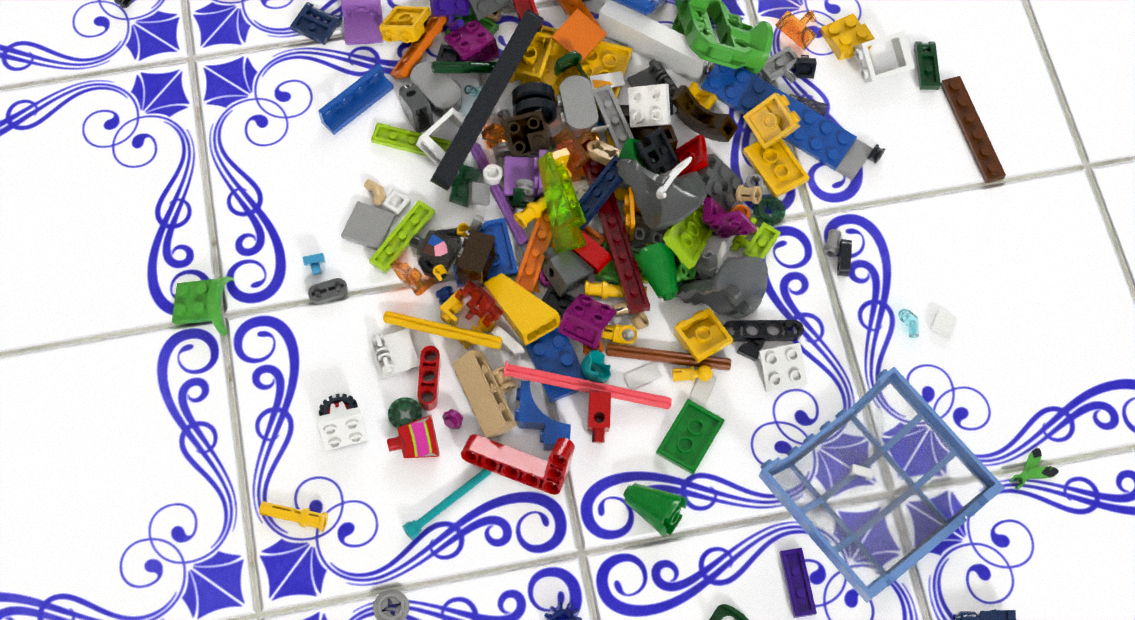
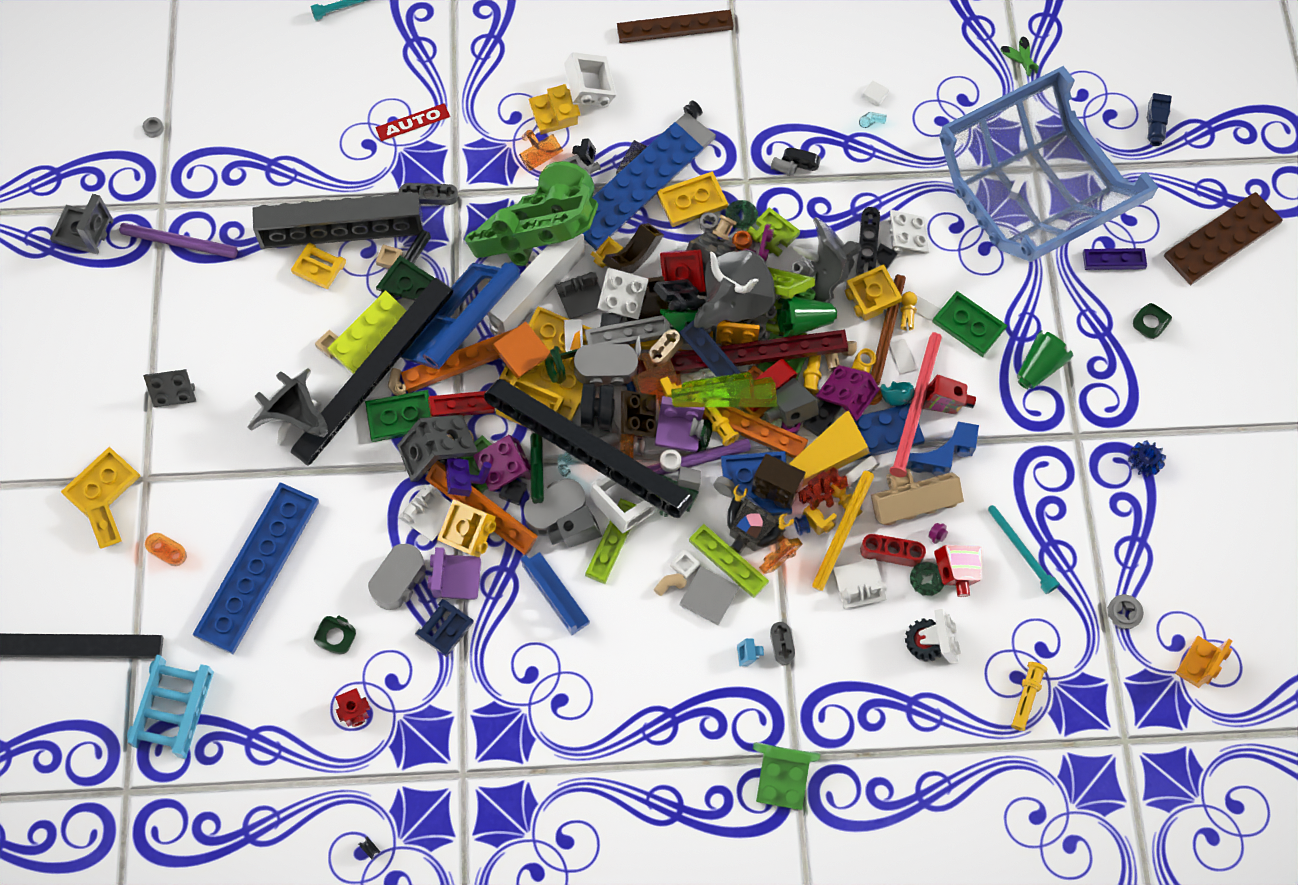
camera: 80 degrees left, 0 degrees up
(520, 466) = (995, 471): red beam -> none
(772, 120) = (652, 187): yellow plate -> none
(927, 65) = (609, 47): dark green plate -> none

